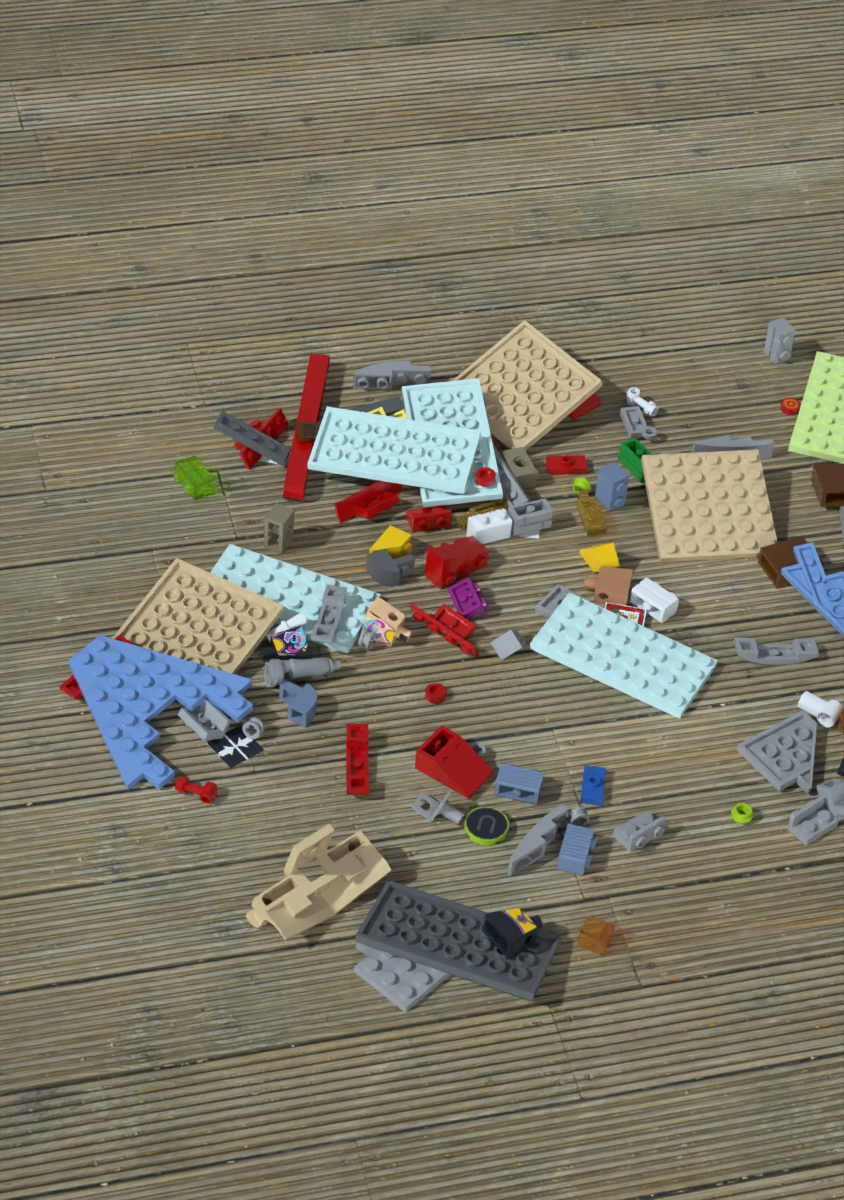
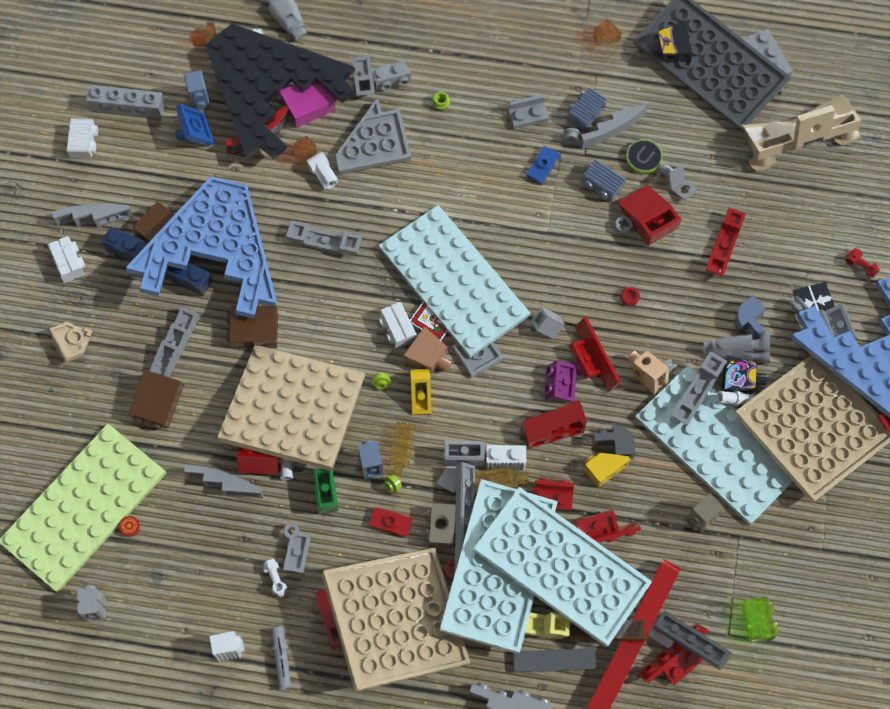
camera: 155 degrees left, 25 degrees up
(485, 477) = (490, 500): red tile -> none
(606, 362) = (278, 634): none -> light grey pin
(642, 555) = (381, 381): none -> lime plate
(651, 343) = (226, 646): none -> white brick

